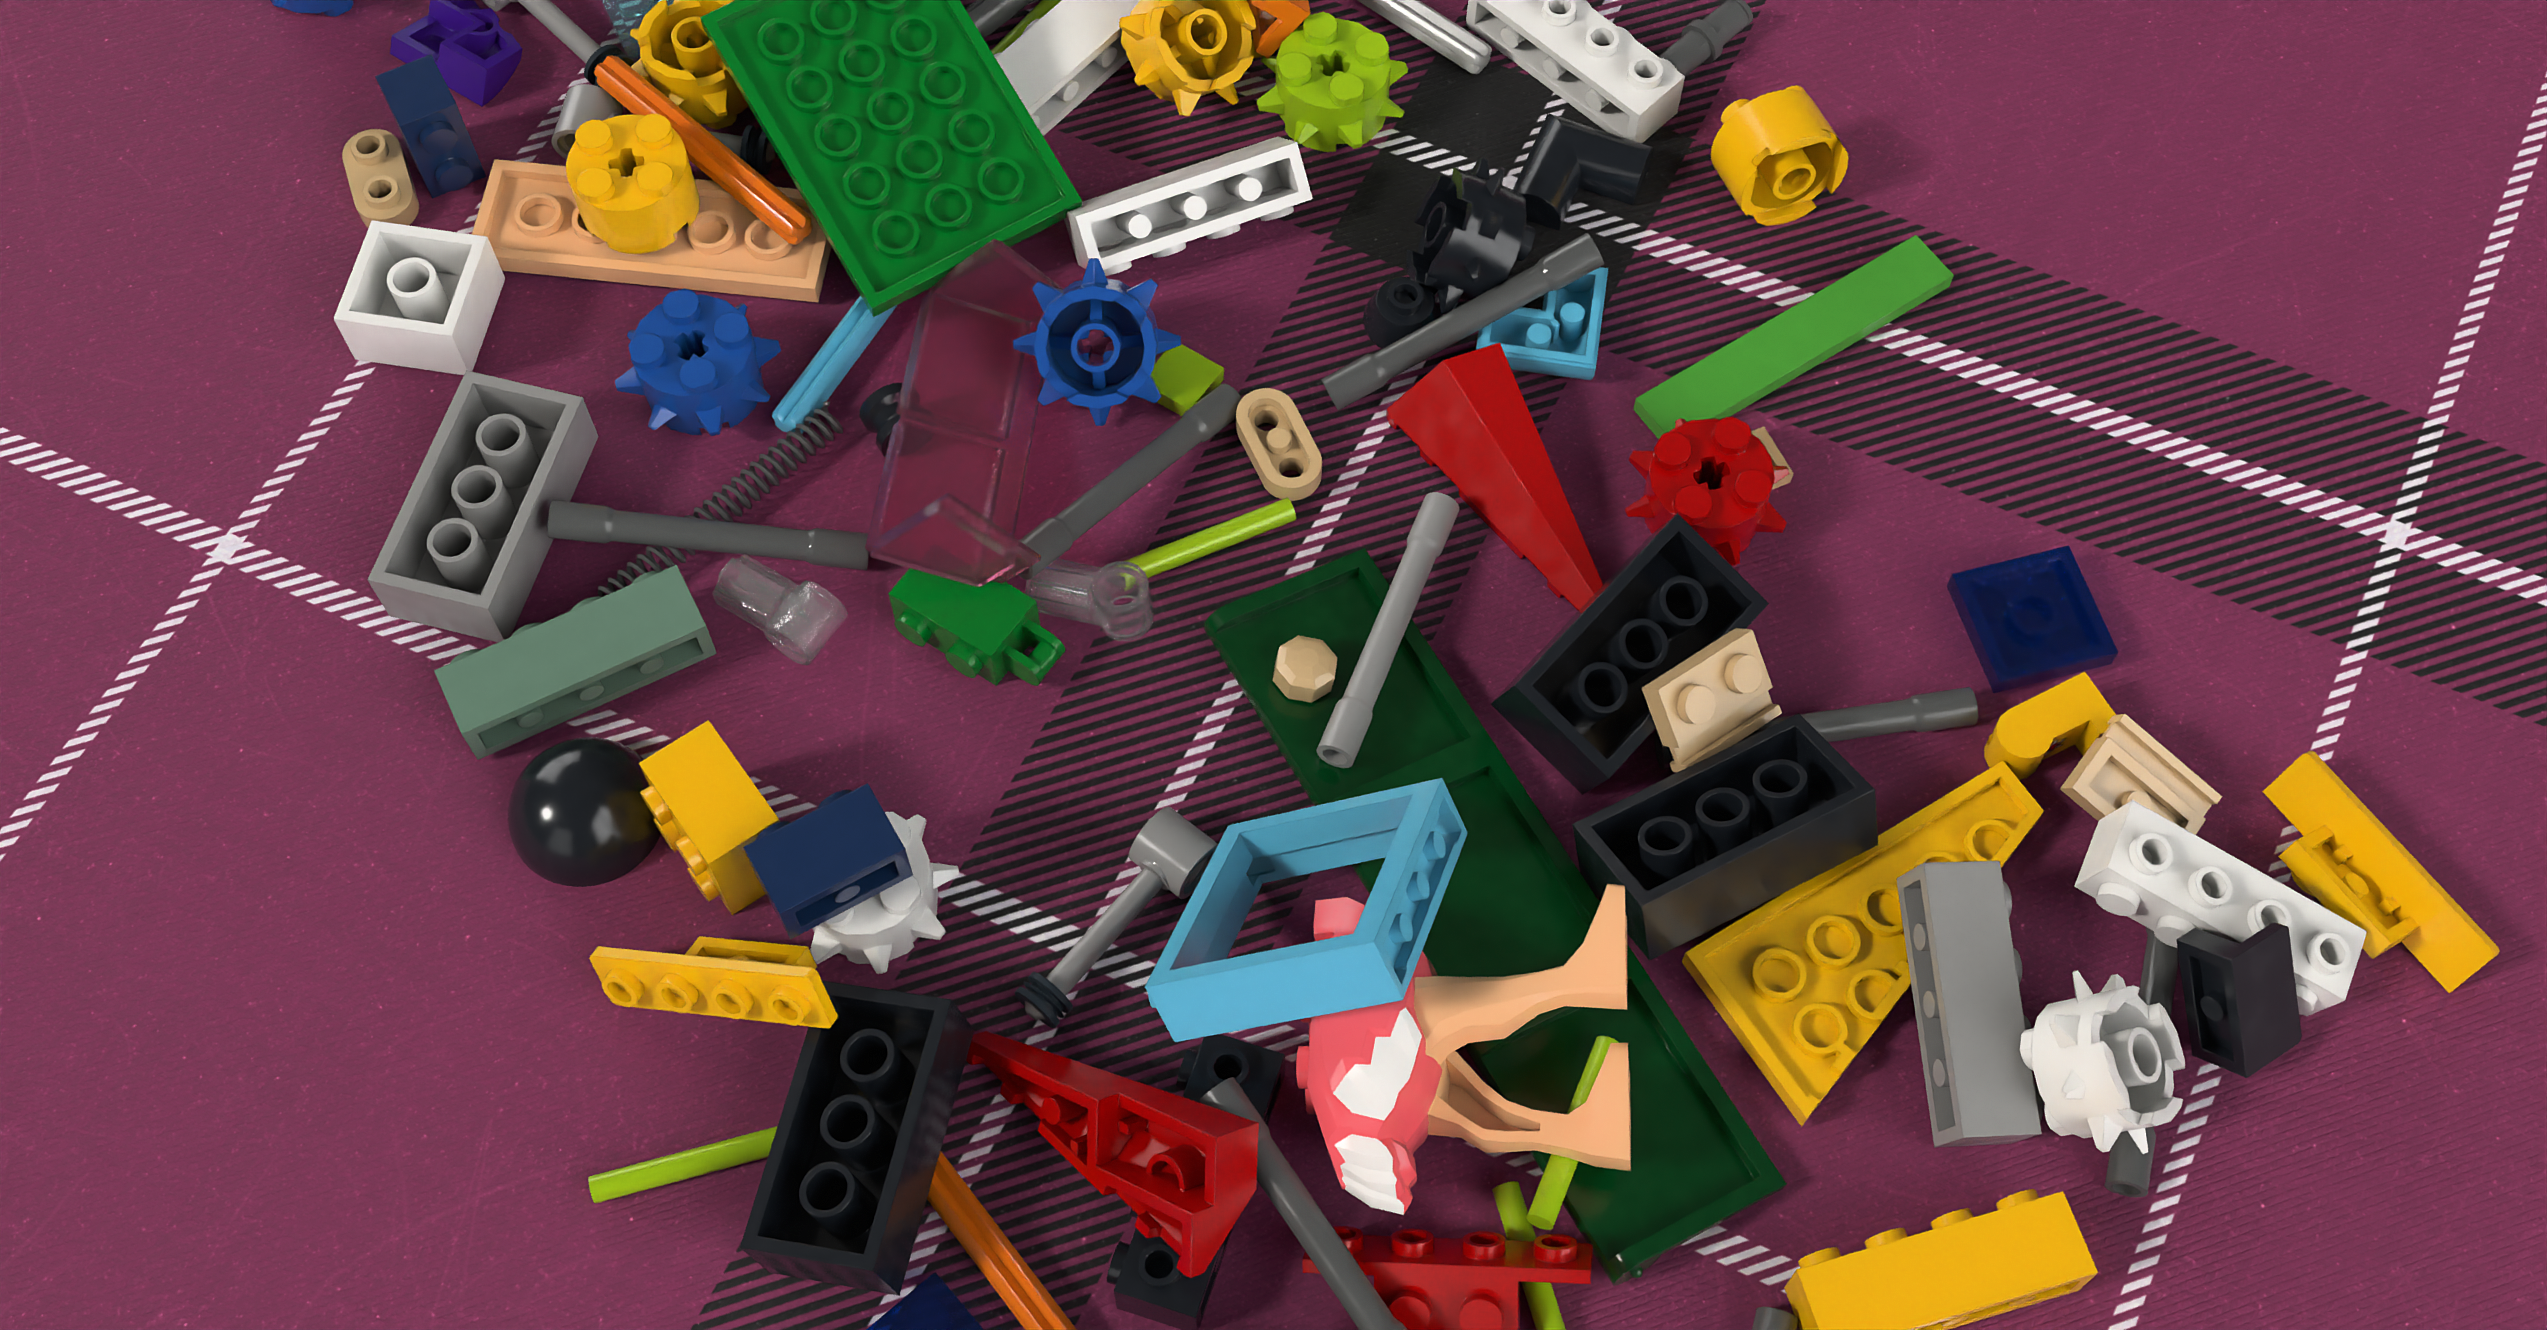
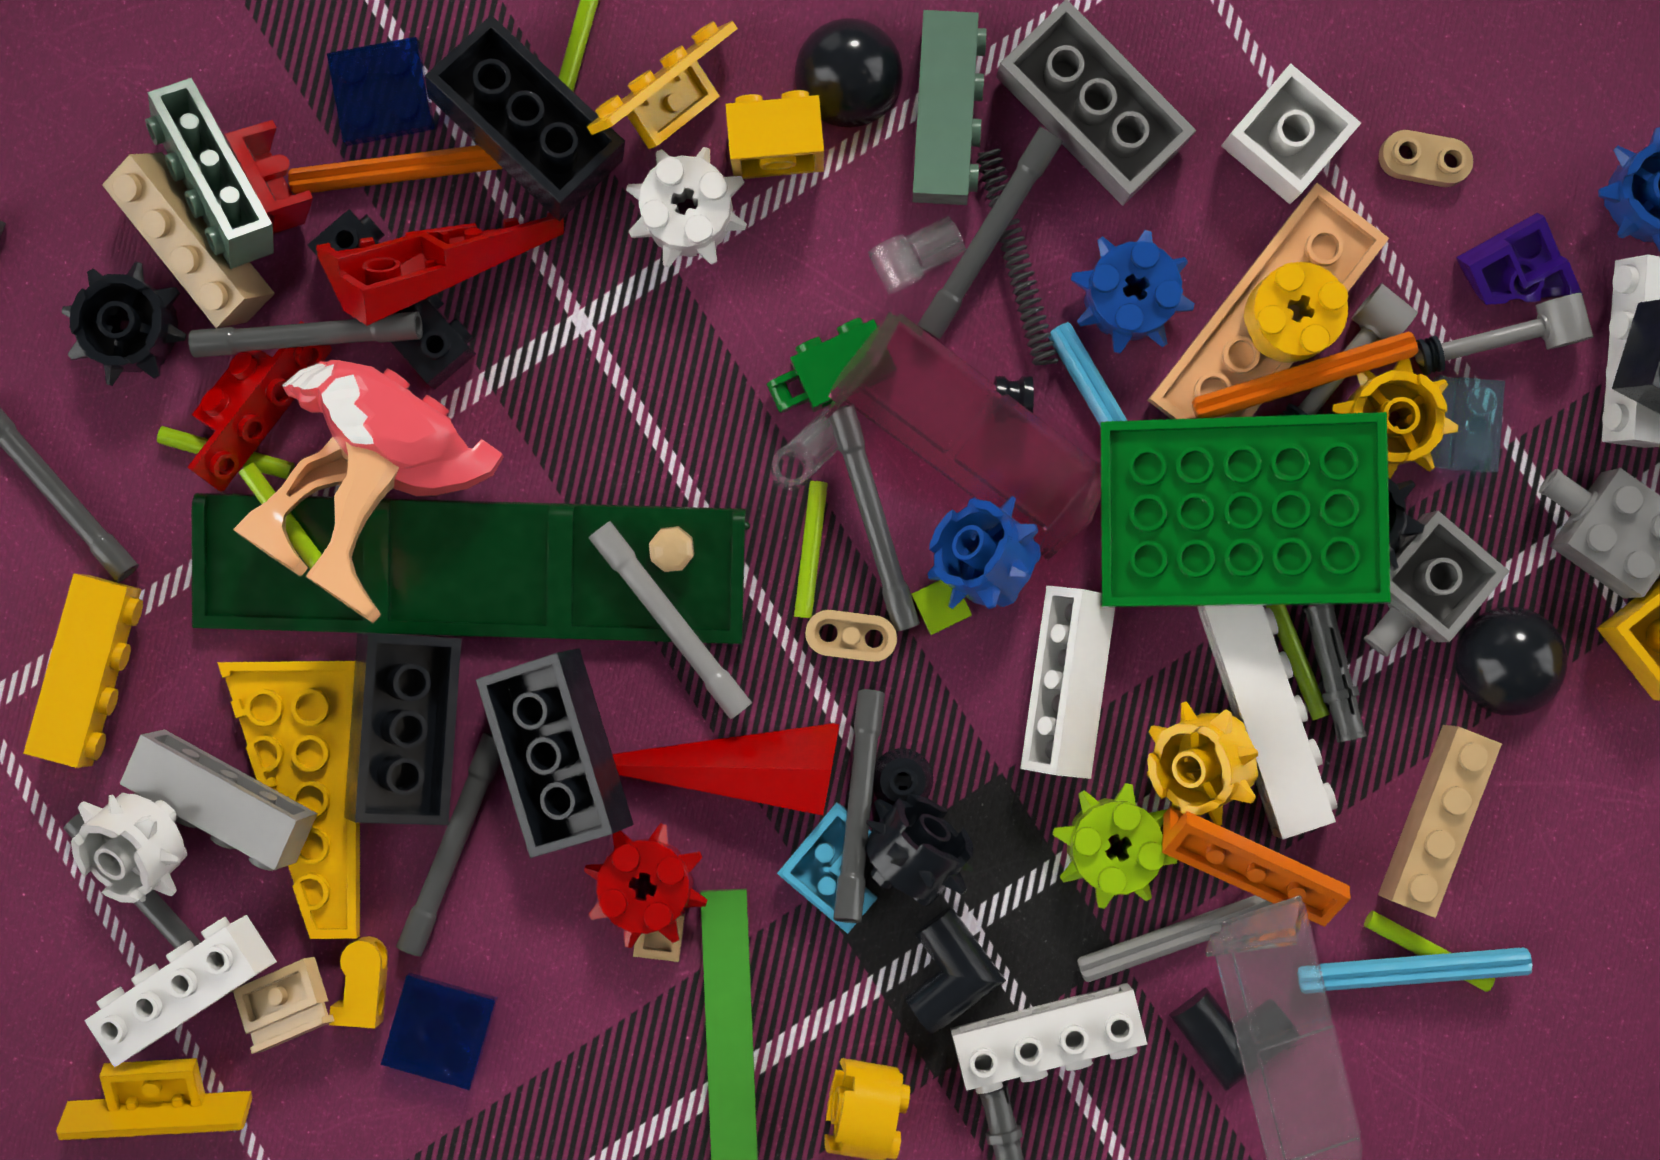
camera: 120 degrees right, 25 degrees up
(431, 126) = (1432, 202): dark blue brick -> none
(828, 859) = (687, 175): dark blue brick -> none
(1171, 858) = (599, 395): light grey piece -> none
(1211, 995) = (432, 479): medium azure window -> none
(1712, 699) = (488, 778): tan plate -> none
(2240, 997) = (112, 954): black panel -> none

